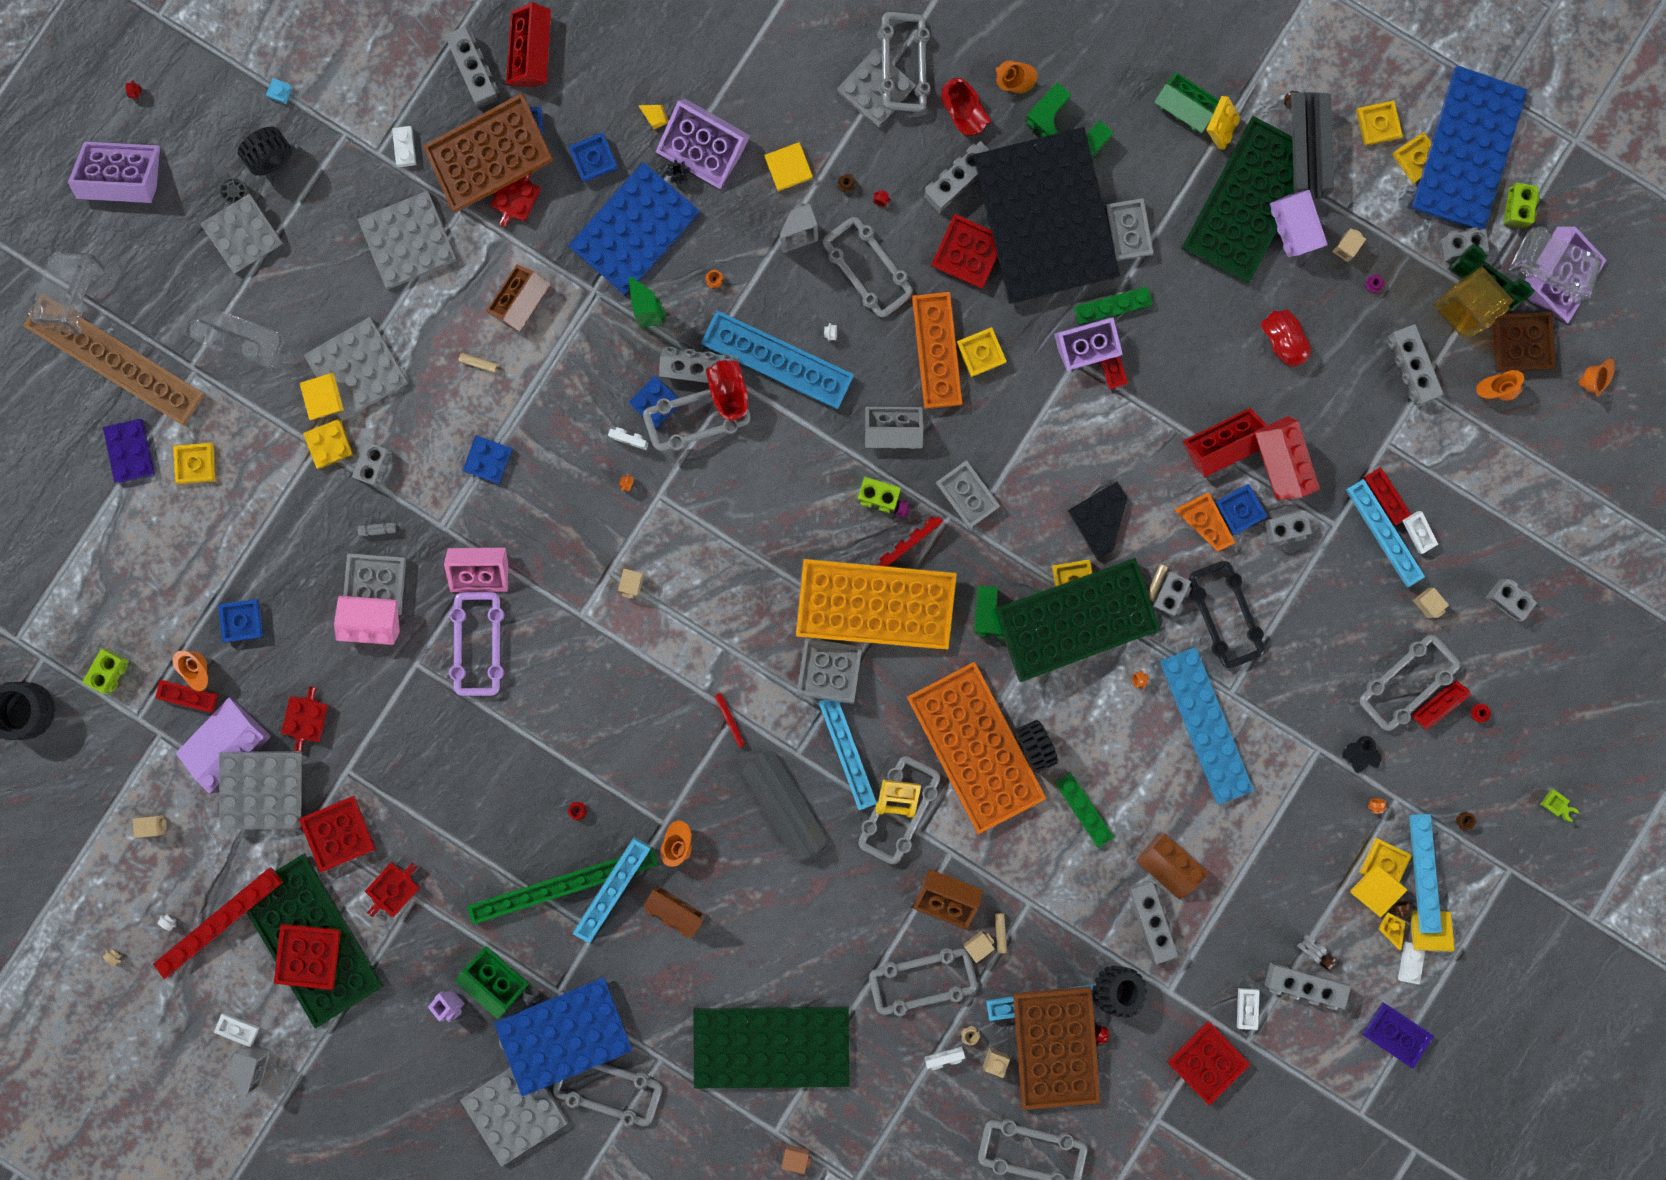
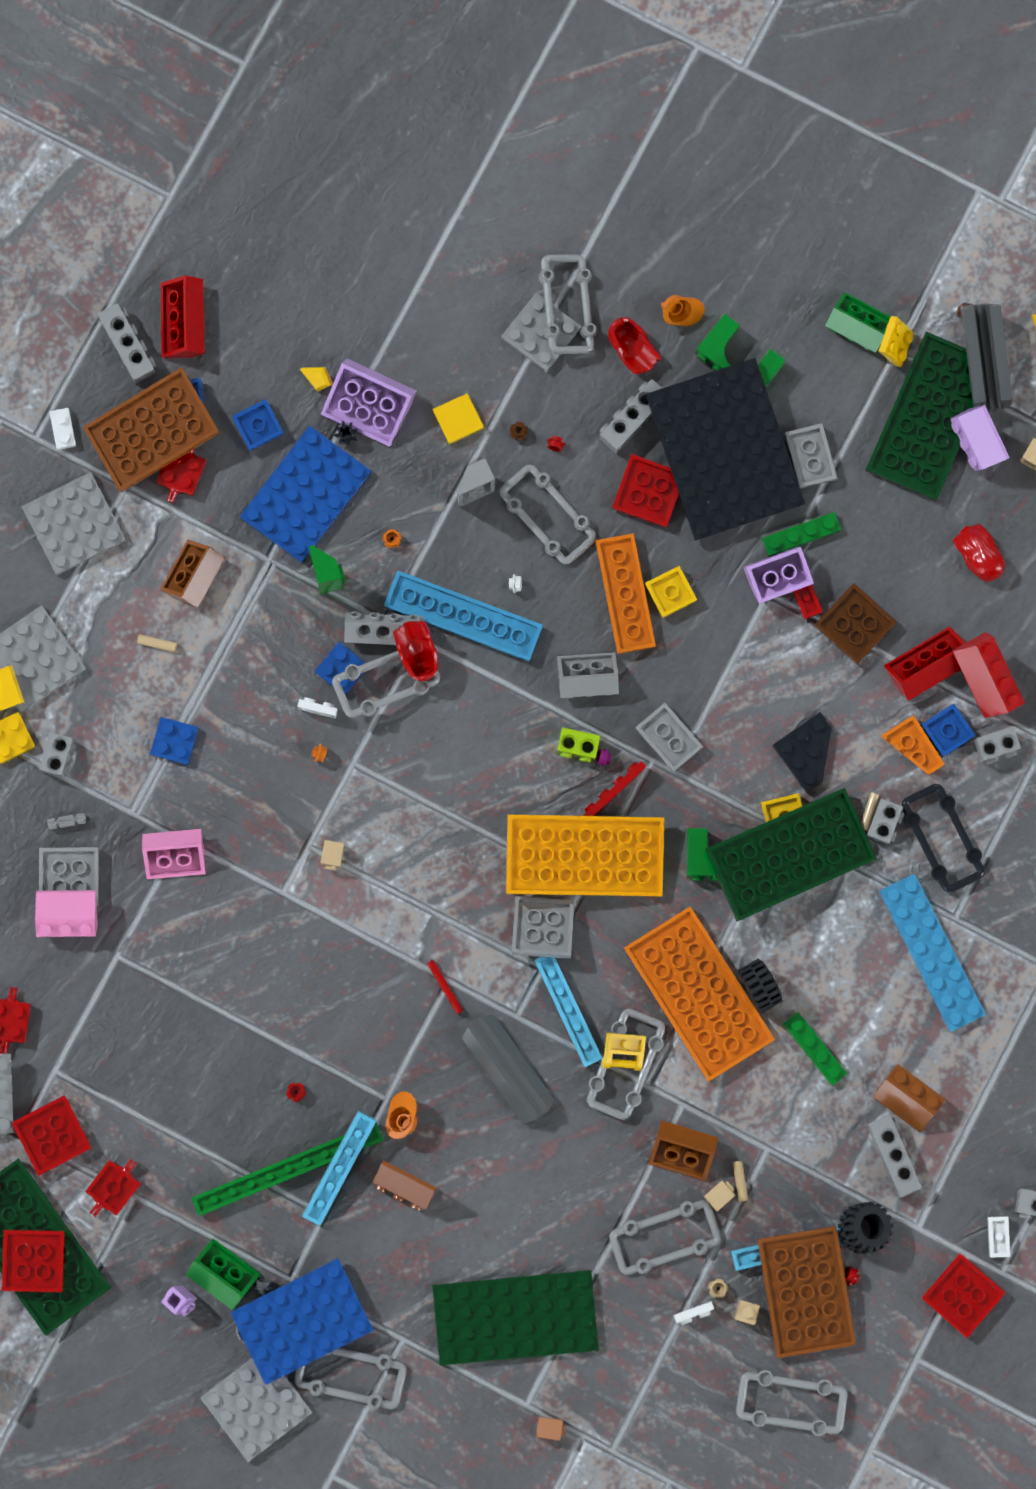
camera: 10 degrees left, 5 degrees down
(495, 671) = (200, 956): lavender bar -> none
(1140, 679) = (860, 911): orange plate -> none
(1158, 398) = (855, 624): none -> reddish brown plate

